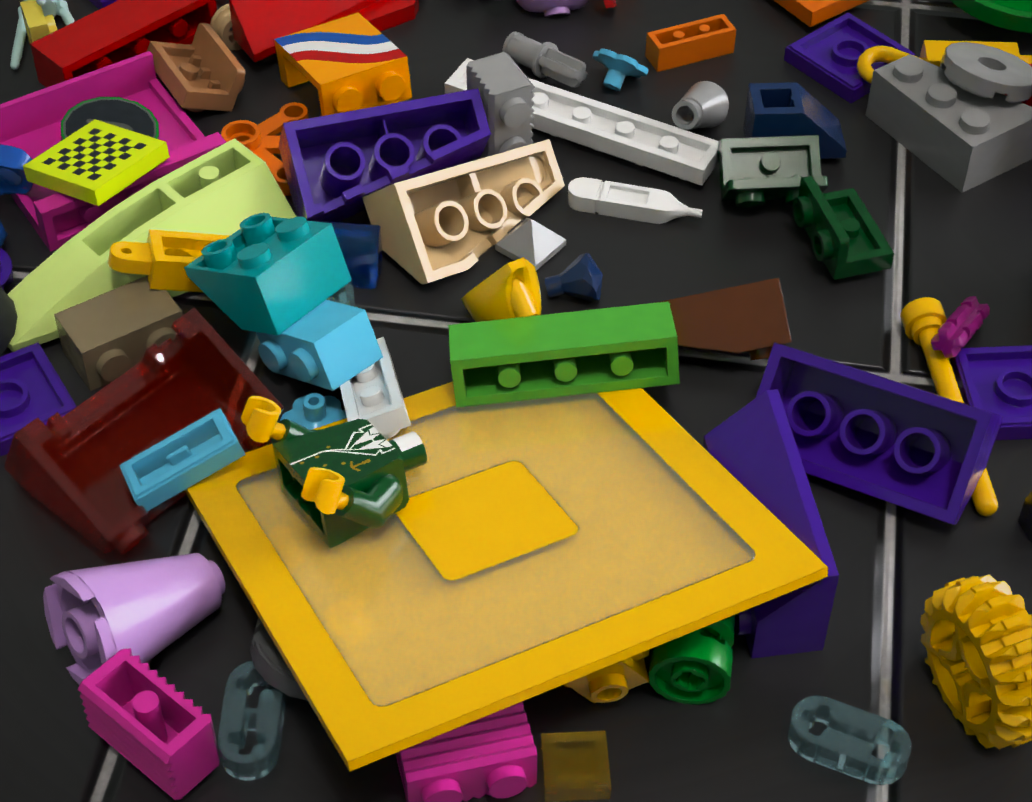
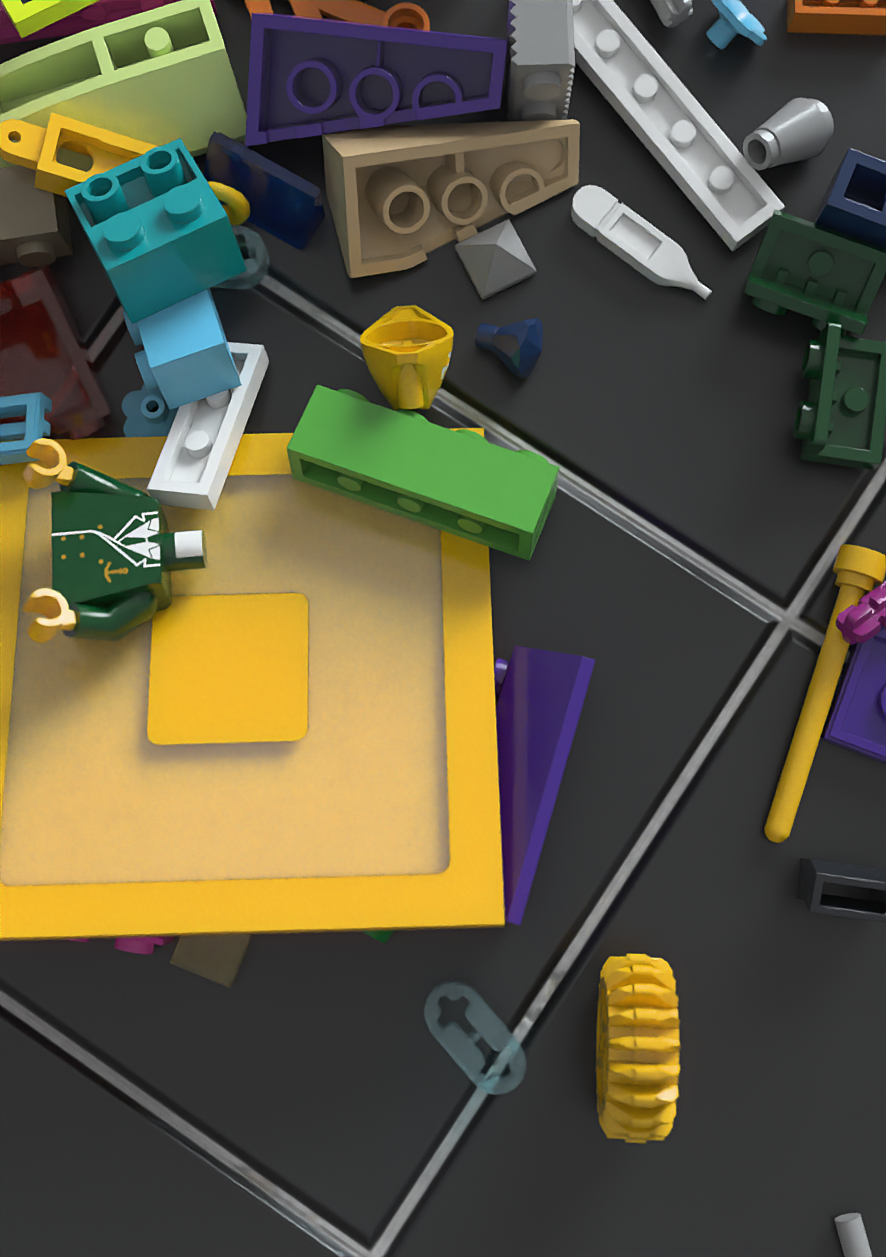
camera: 30 degrees right, 35 degrees up
(733, 319) = (626, 475): reddish brown wedge -> none
(882, 433) = (703, 702): dark purple slope -> none

